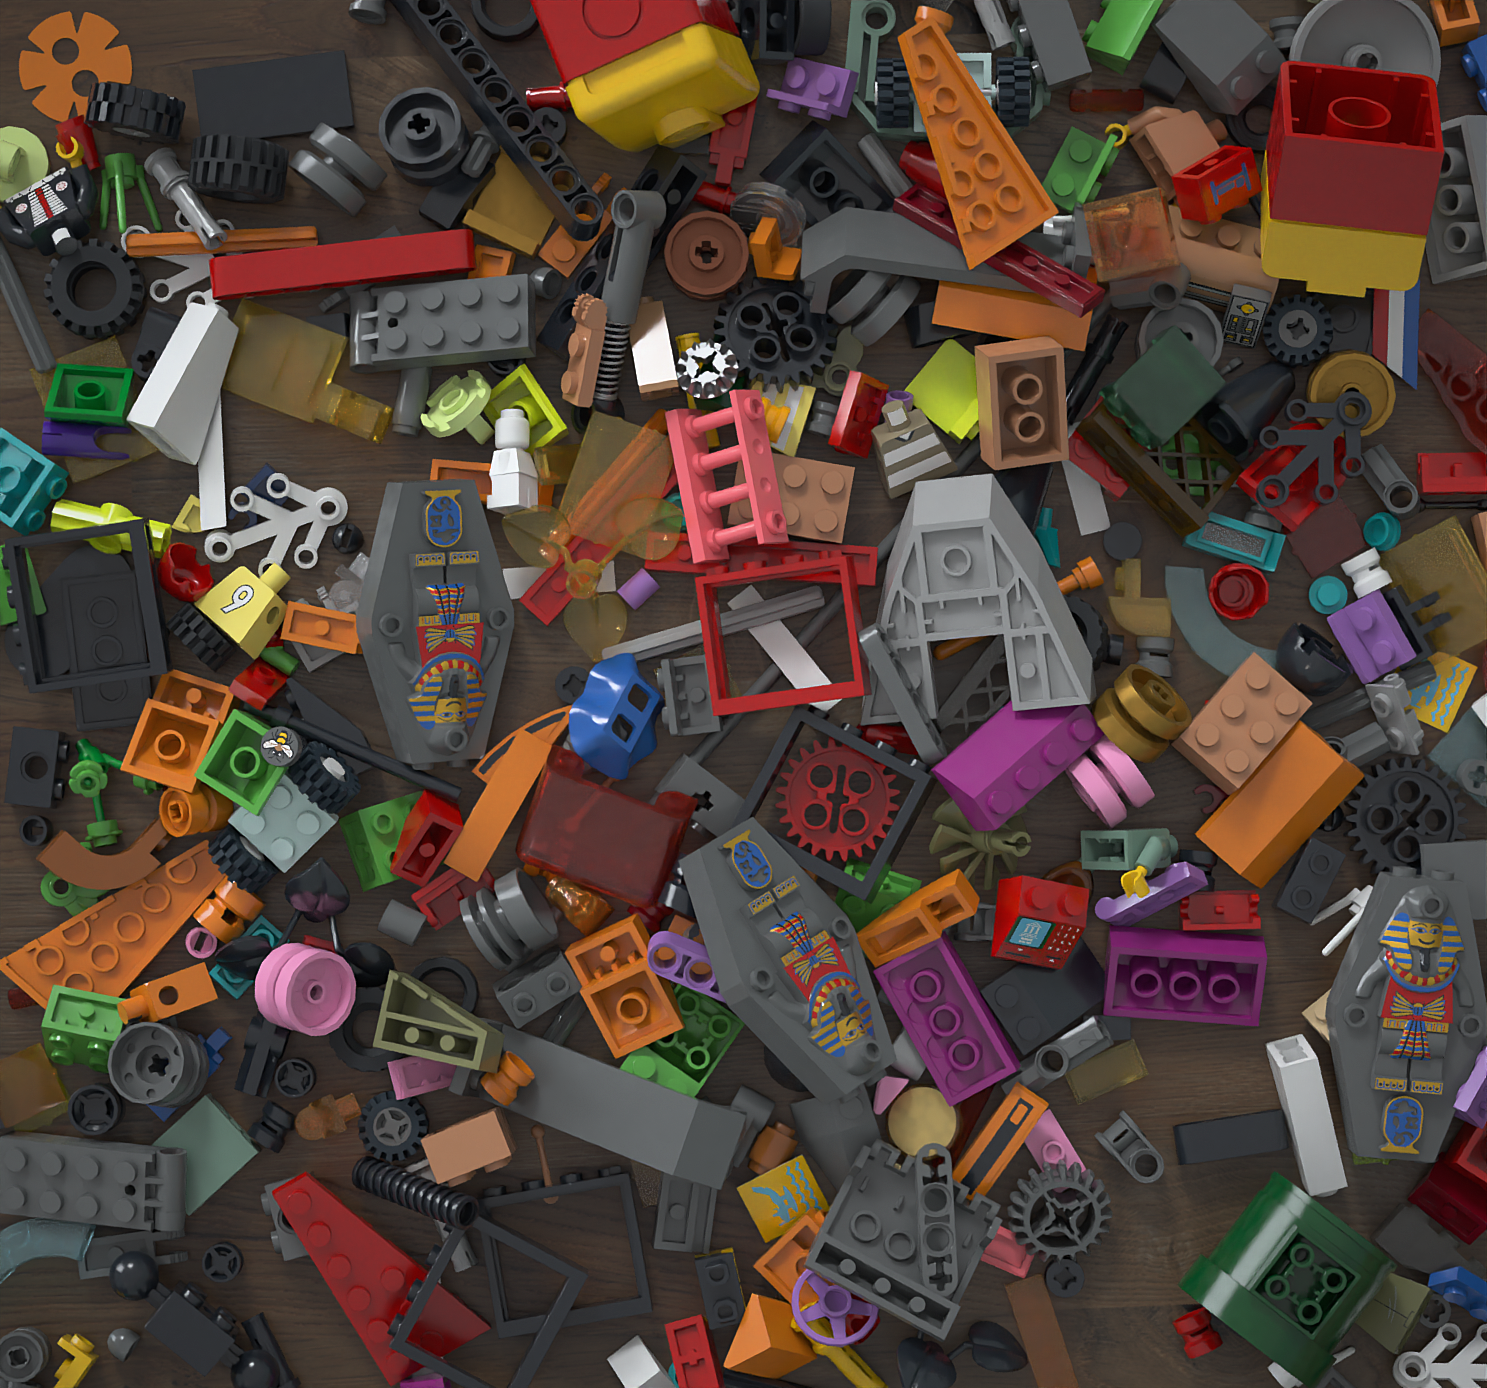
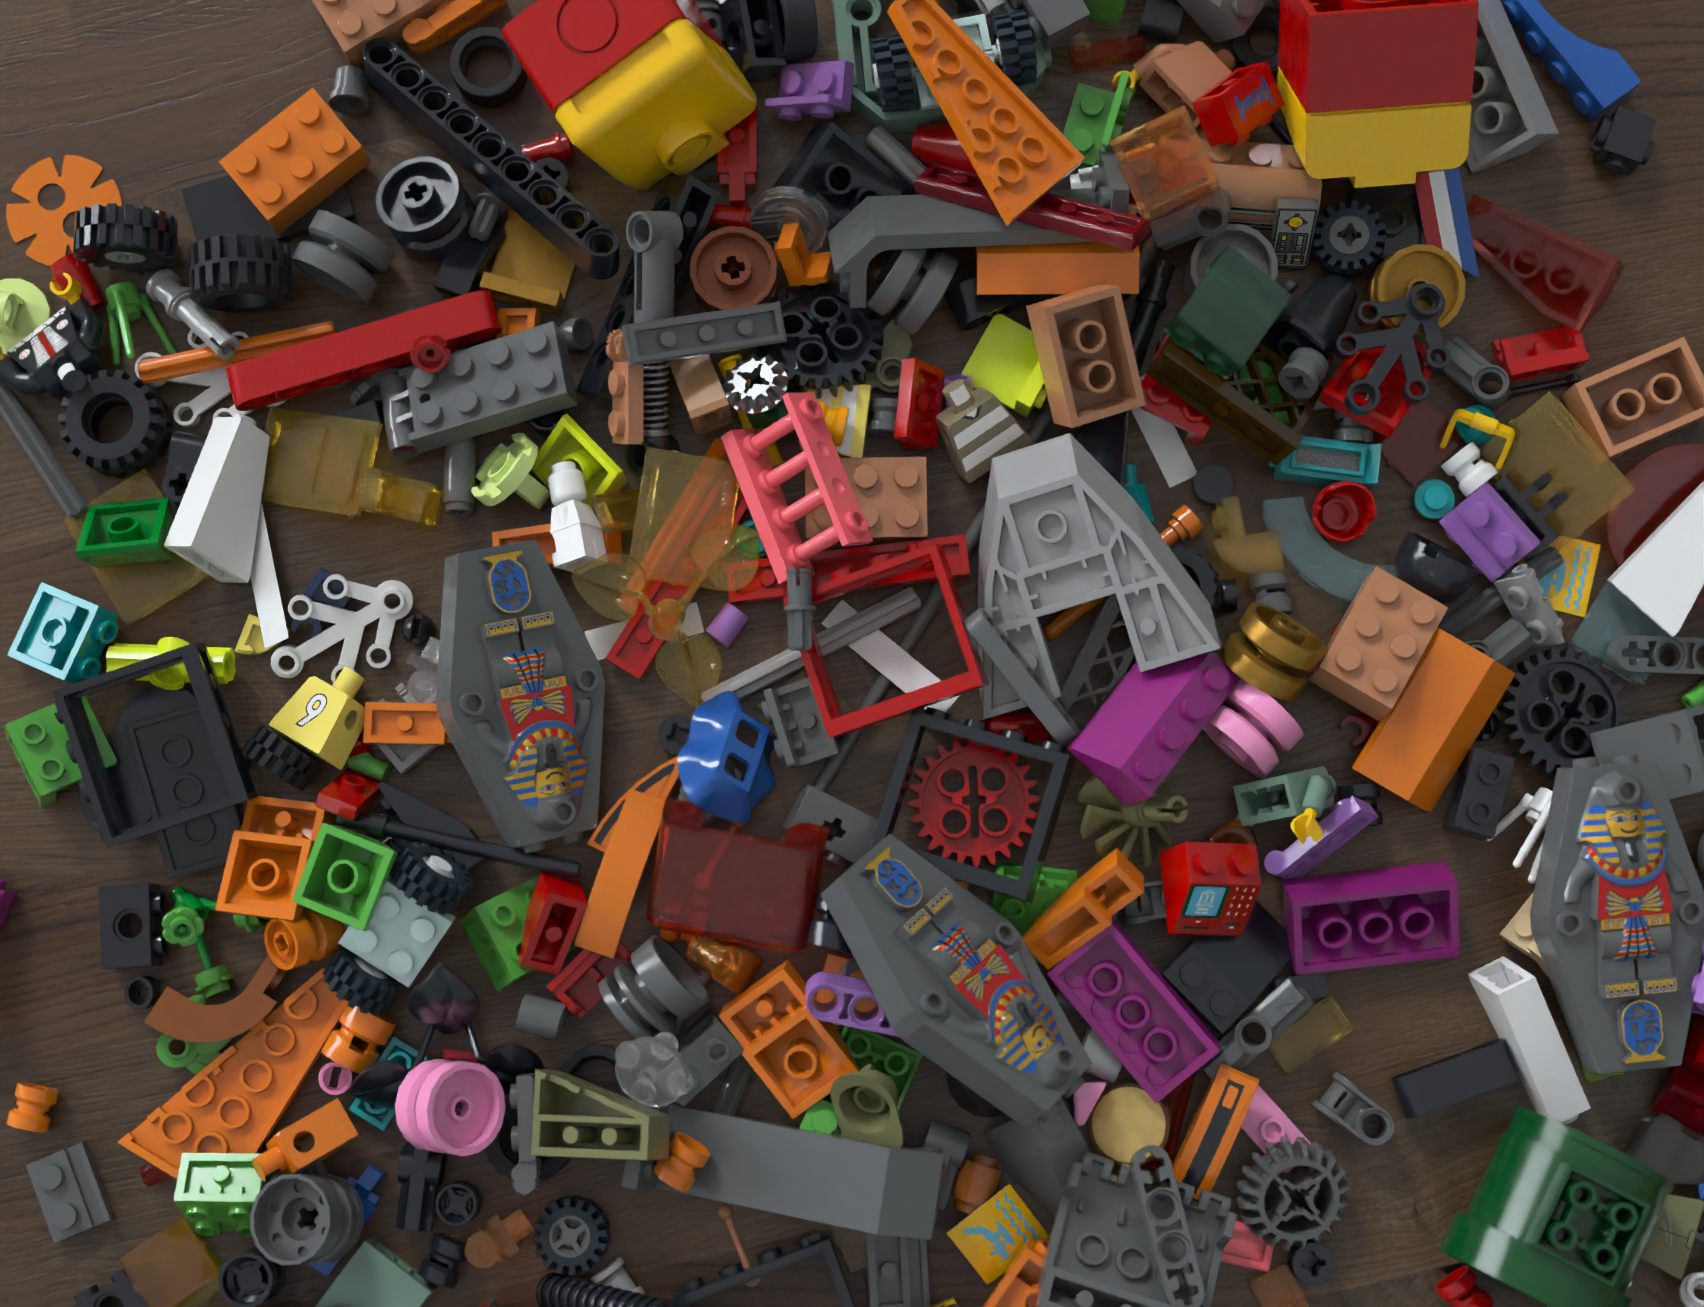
camera: 10 degrees left, 5 degrees down
(78, 440) = (122, 578): dark purple piece -> none
(182, 574) = (251, 696): red hair -> none
(281, 747) = (377, 852): tile -> none
(308, 67) = (295, 161): none -> orange brick
(372, 993) = (528, 1170): none -> dark grey hinge
(404, 292) = (430, 363): none -> red plate
(419, 1075) = (586, 1177): bright pink plate -> none
(469, 1145) = (653, 1242): nougat brick -> none
(496, 990) = (652, 1070): none -> clear piece
(566, 253) = (594, 297): orange hinge -> none
(651, 916) = (803, 960): dark red wheel -> none
(667, 314) = (704, 334): none -> dark grey tile
(686, 1060) = (868, 1107): none -> olive piece
(708, 592) = (799, 609): none -> dark grey axle
(1219, 910) = (1392, 843): red hinge -> none
(1225, 454) = (1303, 372): none -> dark grey wheel
(1387, 535) = (1484, 424): none -> yellow piece

